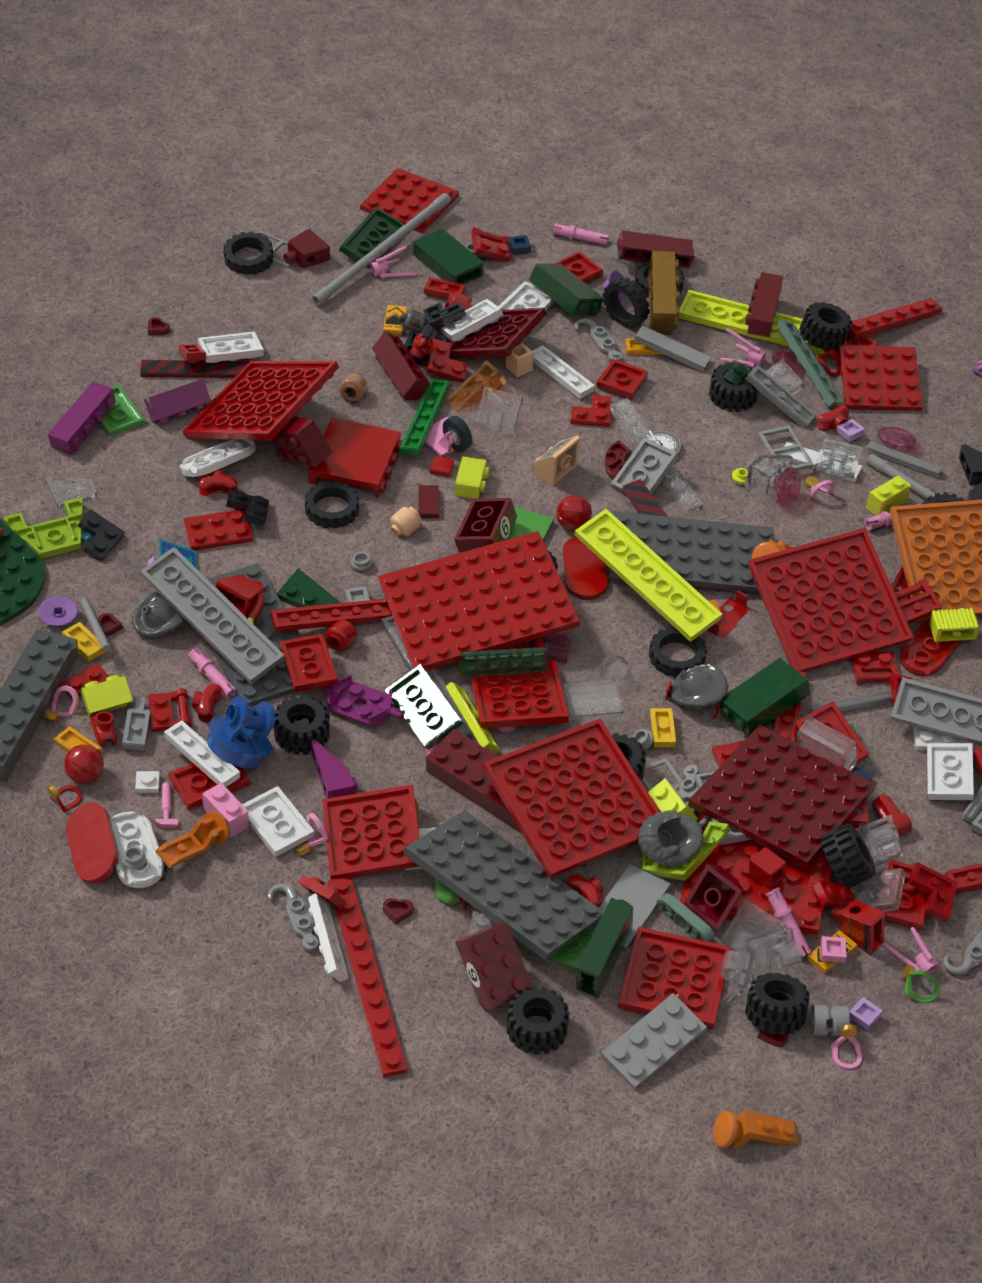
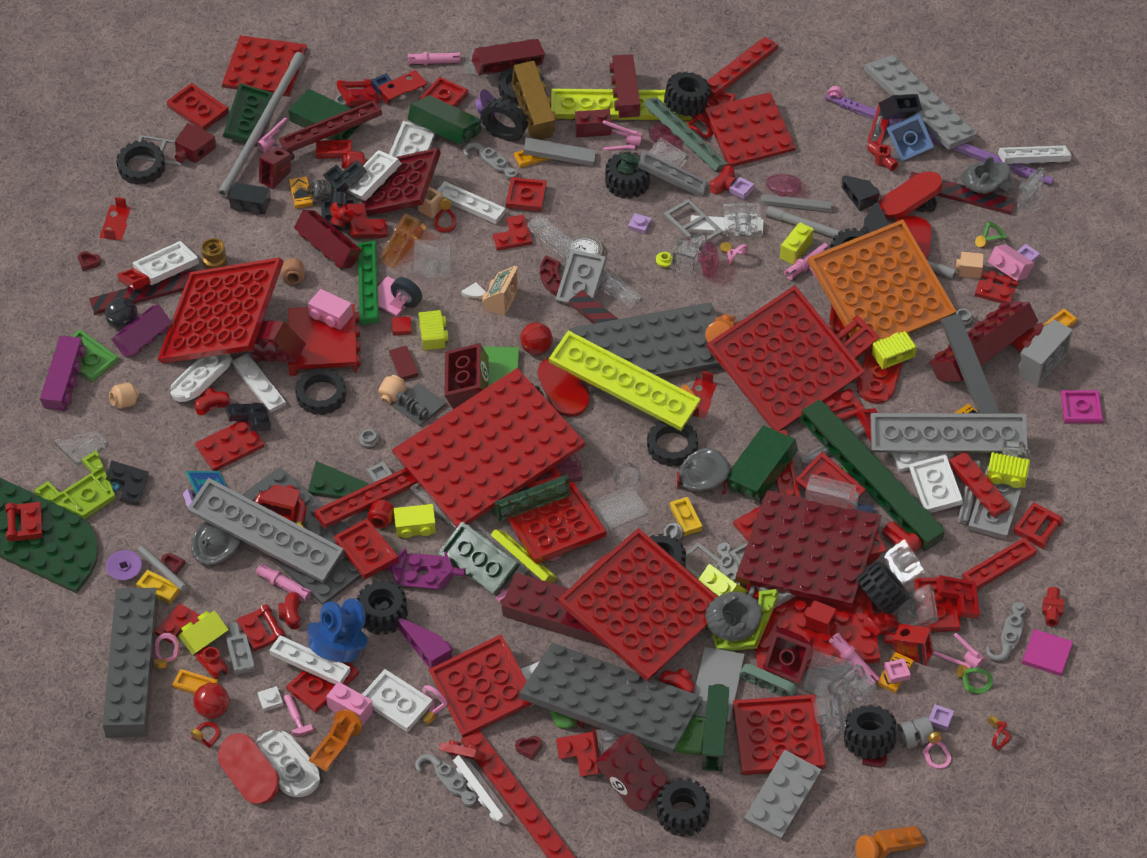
camera: 15 degrees left, 5 degrees up
(133, 455) = (123, 395): none -> light nougat head
(164, 378) = (120, 312): none -> black piece
(201, 302) = (116, 223): none -> red piece
(273, 481) = (258, 383): none -> white plate
(281, 348) = (213, 253): none -> pearl gold wheel
(326, 219) = (197, 106): none -> red plate
(340, 311) = (249, 198): none -> black brick
(372, 428) = (330, 309): none -> bright pink brick
(373, 652) = (414, 521): none -> neon yellow brick
(377, 288) = (274, 166): none -> dark red torso
(426, 543) = (418, 404): none -> dark grey hinge
(448, 266) = (330, 126): none -> dark red tile
(453, 926) = (583, 747): none -> red plate
(529, 454) = (473, 291): none -> white tile
(533, 365) = (445, 204): none -> red piece
(537, 249) = (401, 86): none -> red piece
(713, 331) = (590, 123): none -> dark red brick
(729, 436) = (639, 223): none -> lavender plate
(882, 742) = (871, 474): none -> dark green brick
(929, 1042) = (1001, 725): none -> red piece

